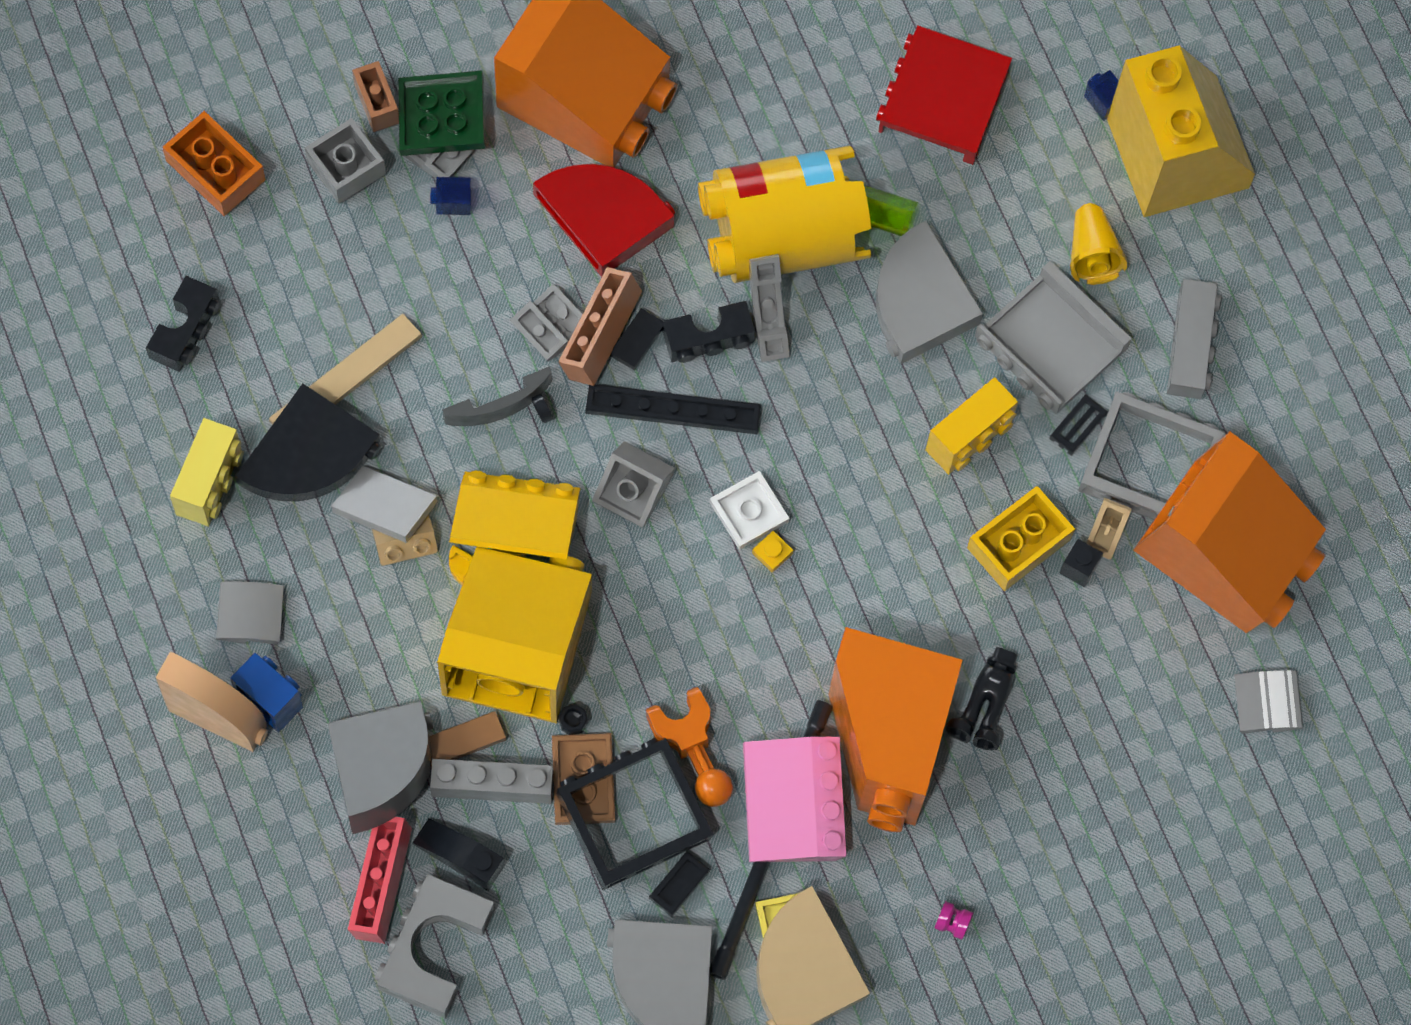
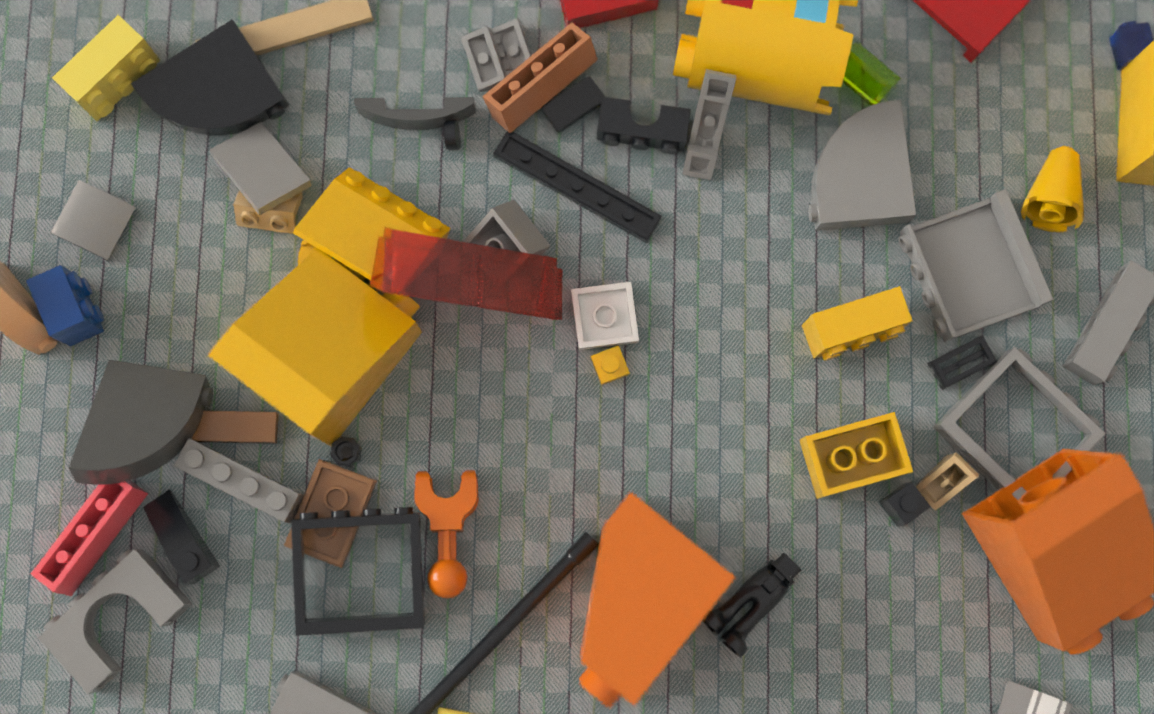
camera: 25 degrees right, 10 degrees up
(619, 514) = (467, 274): none -> clear red piece
(679, 884) = (374, 656): black tile -> none
(794, 800) = (517, 627): bright pink slope -> none

